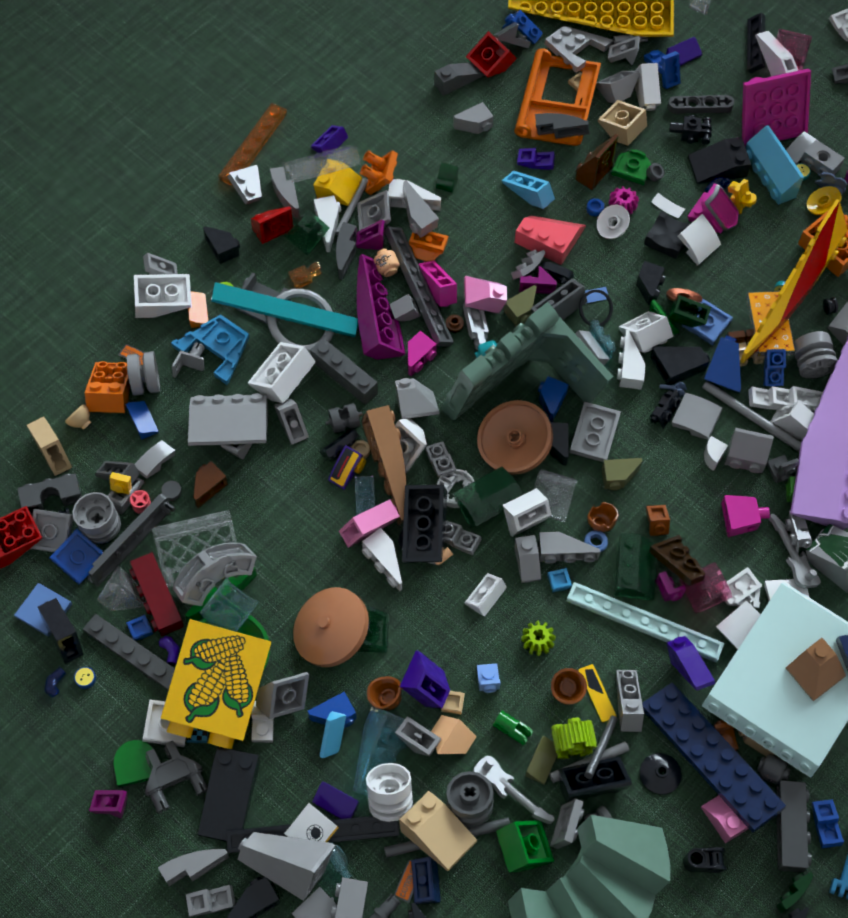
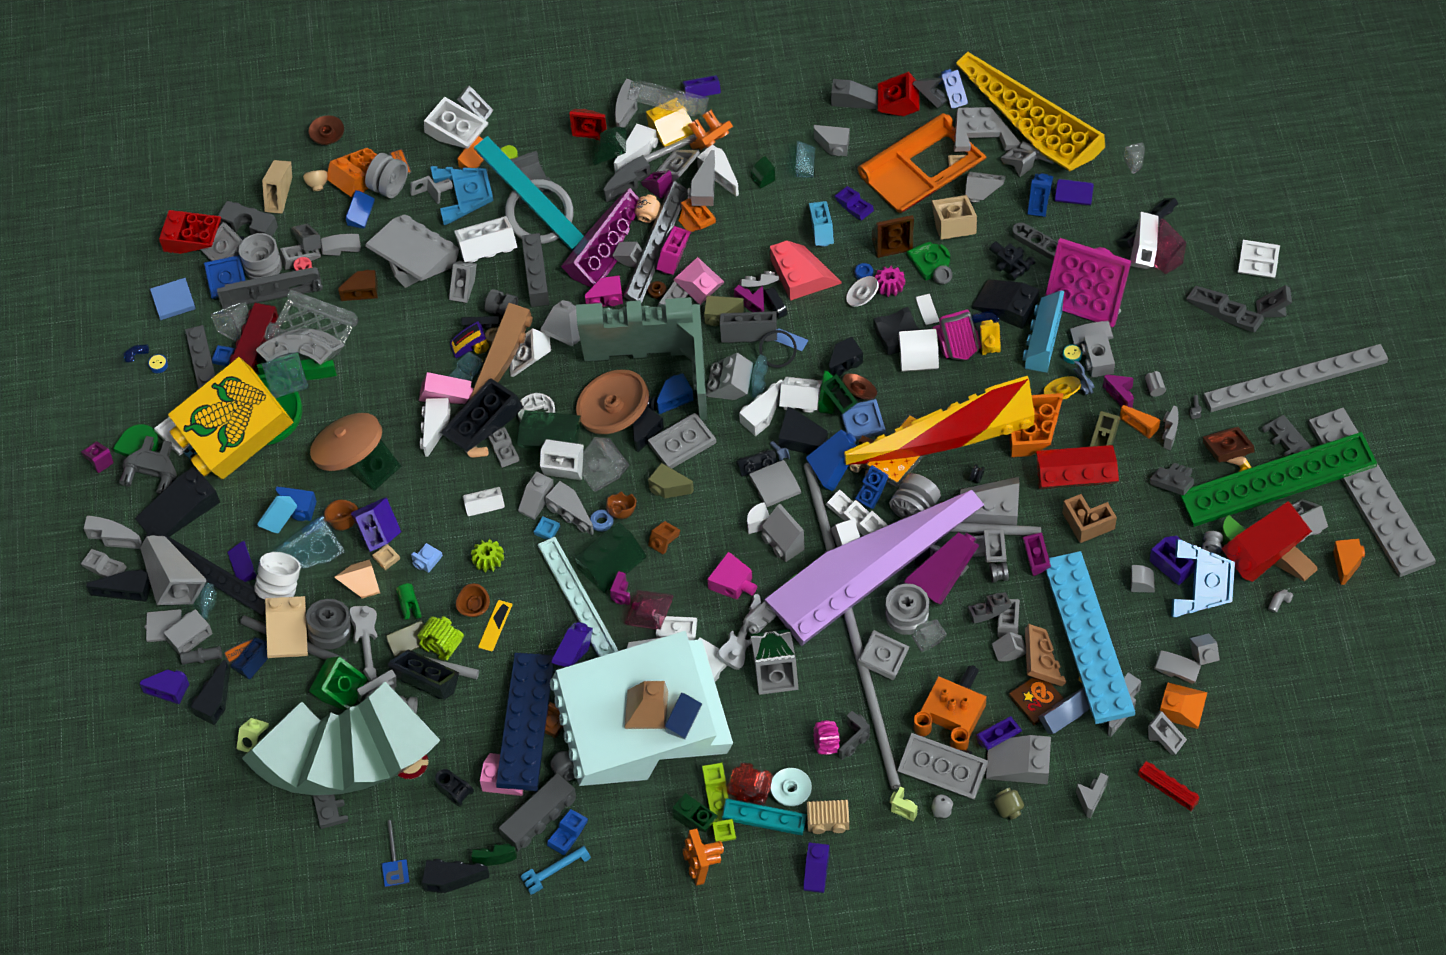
camera: 45 degrees right, 5 degrees down
(42, 364) = (326, 130): none -> copper dish
(61, 630) = (167, 318): black slope -> none
(120, 483) = (297, 243): yellow plate -> none
(172, 490) = (333, 275): dark grey tile -> none
(222, 244) = (537, 116): black slope -> none
(247, 184) = (601, 80): wing -> none
(254, 141) = (638, 52): clear orange plate -> none
(261, 726) = (248, 473): white slope -> none
(283, 696) = (268, 463): light grey slope -> none
(302, 276) = (576, 179): clear orange plate -> none
(312, 826) = (209, 564): white sticker -> none
(417, 737) = (333, 556): light grey slope -> none
(440, 459) = (544, 381): light grey slope -> none
(466, 149) = (805, 160): none -> clear light blue slope
(561, 125) = (893, 186): dark grey slope -> none
(601, 747) = (452, 656): dark grey bar -> none
(629, 701) = (502, 649): light grey slope -> none
(648, 87) = (1005, 200): white slope -> none
(656, 782) = (485, 718): black dish -> none
(678, 560) = (643, 571): dark brown wing -> none
(781, 468) = (797, 563): dark grey bracket -> none

